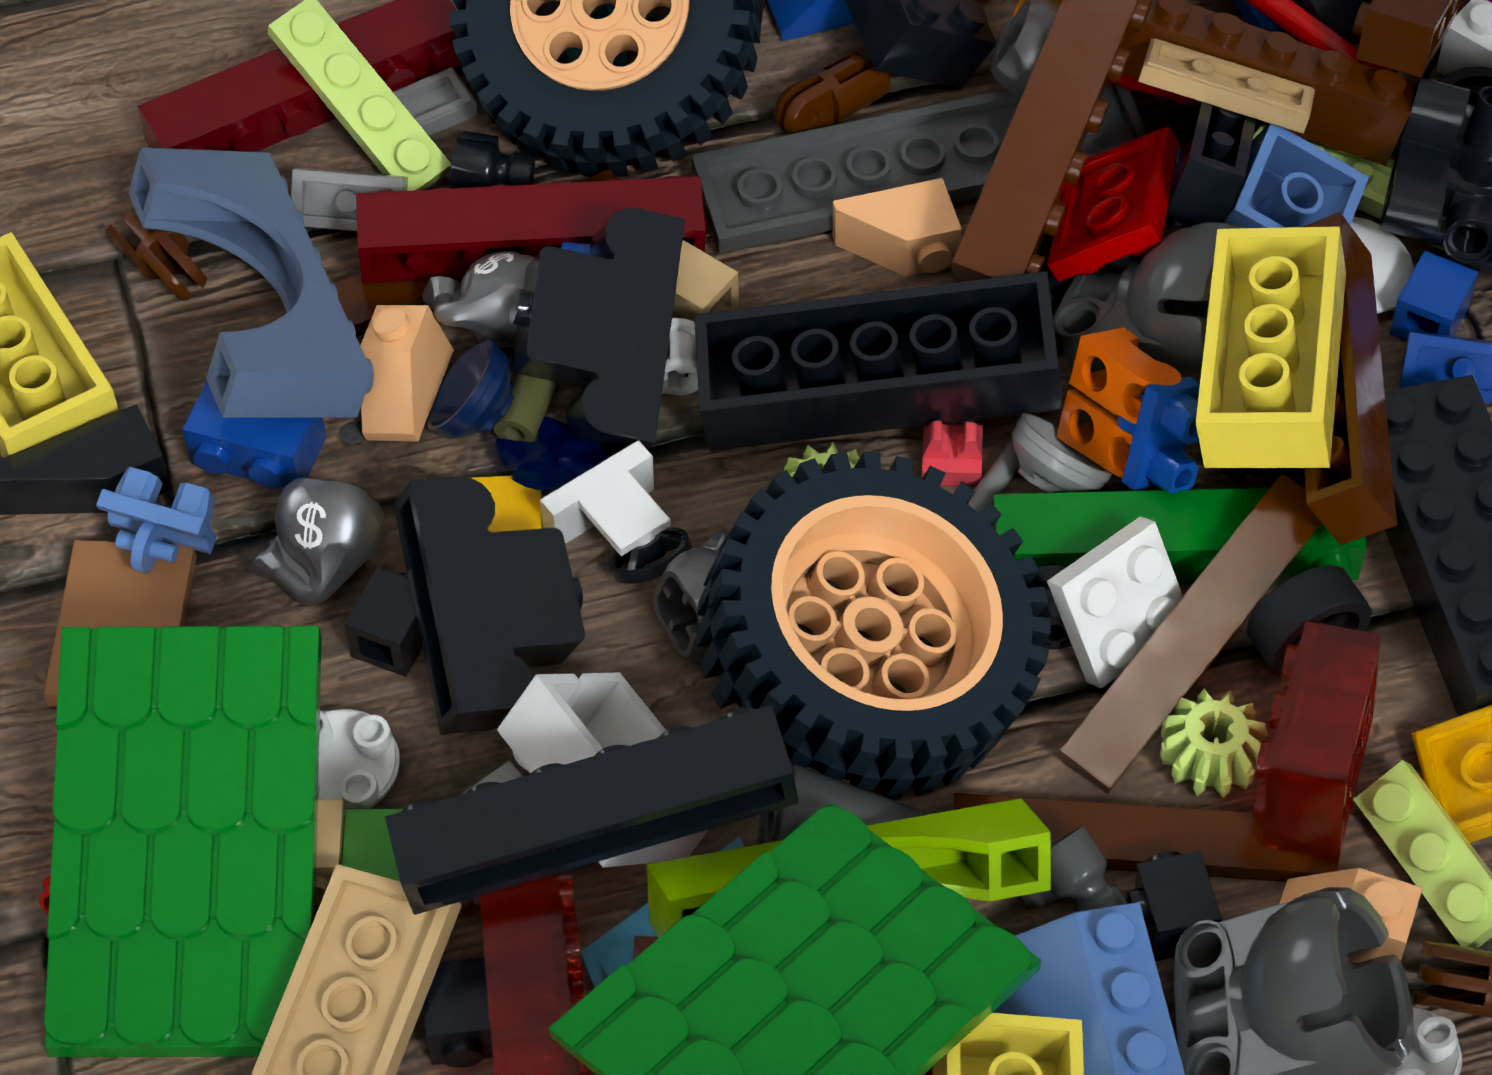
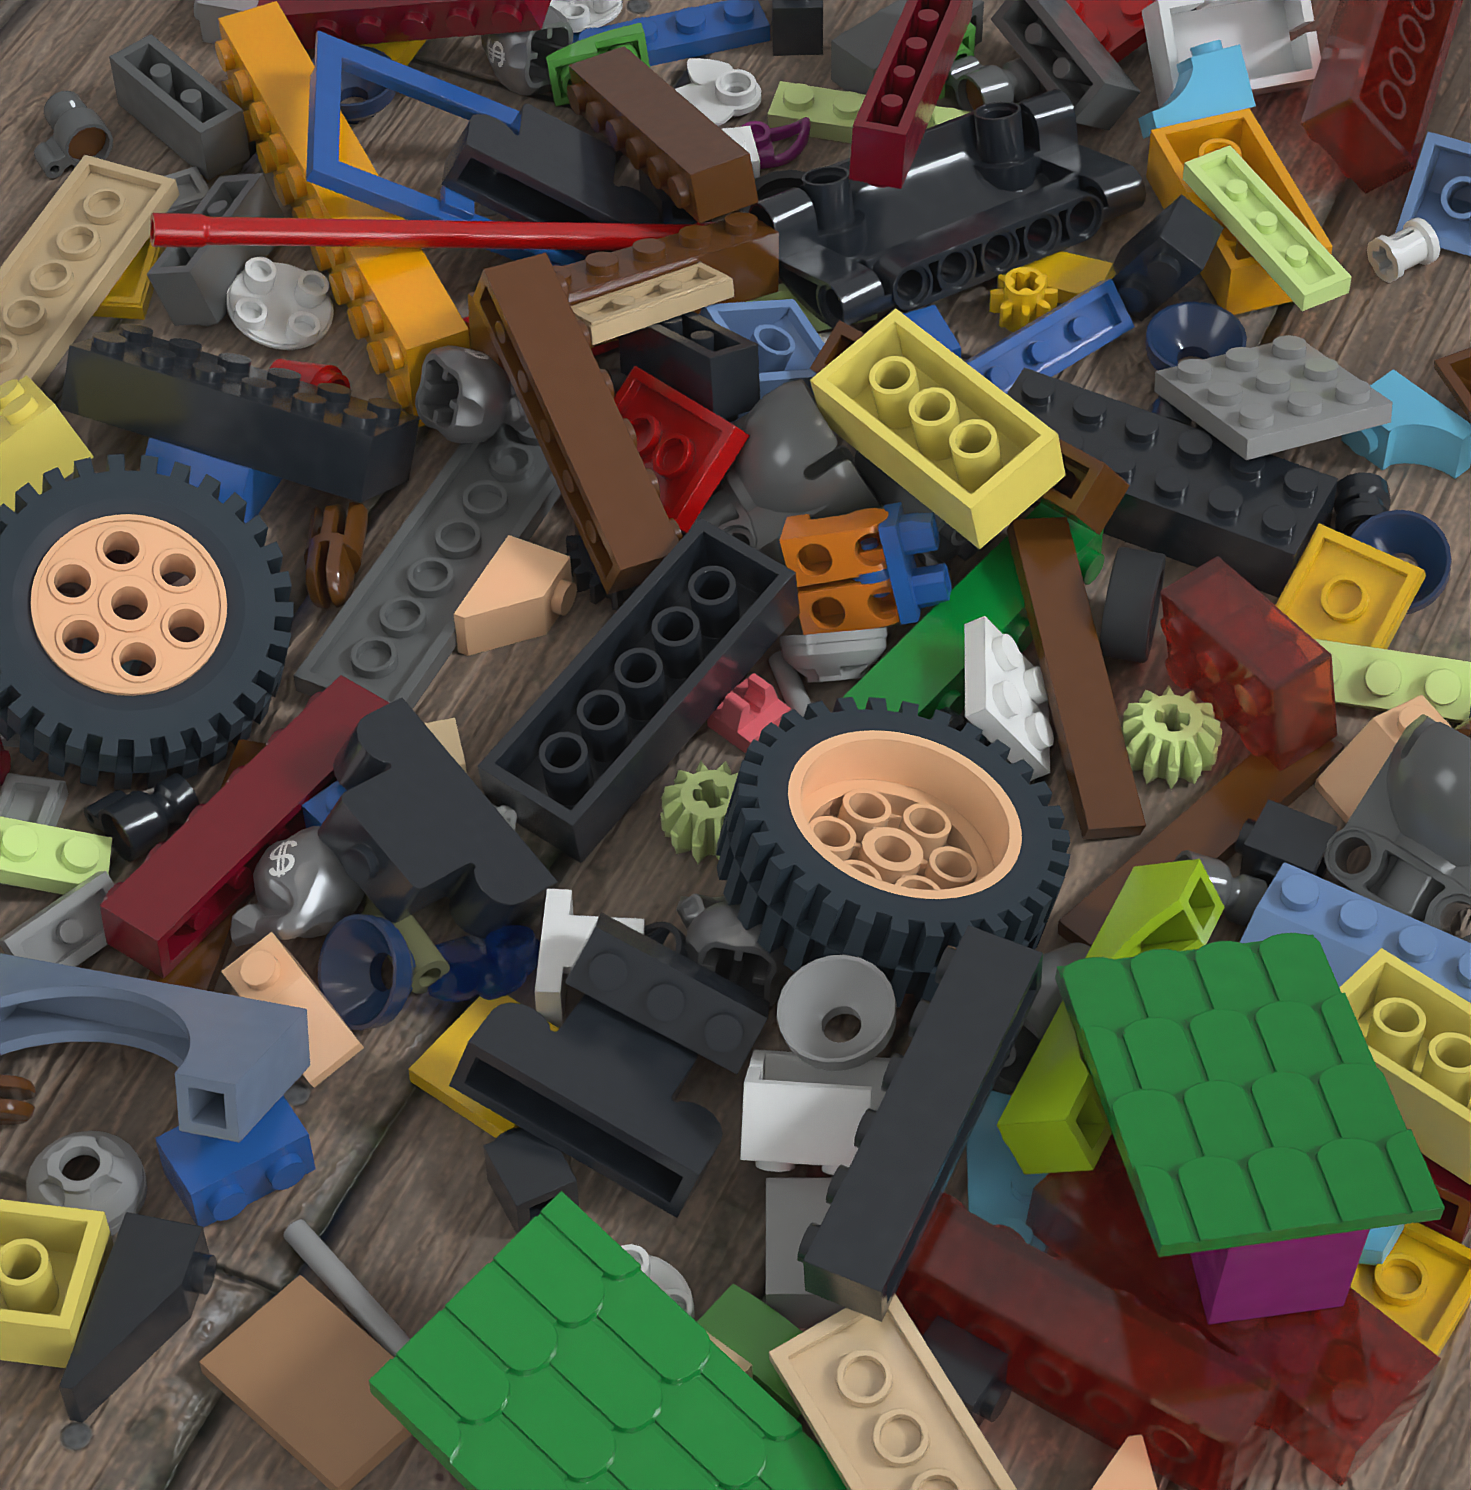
camera: 50 degrees left, 5 degrees down
(134, 509) = (288, 1259): medium blue hips -> none
(165, 389) = (114, 1188): none -> light grey piece
(217, 569) = (345, 1287): none -> light grey bar
(321, 538) = (401, 1174): flat silver piece -> none
(609, 578) = (669, 993): none -> black brick
(662, 674) = (834, 988): none -> light grey piece

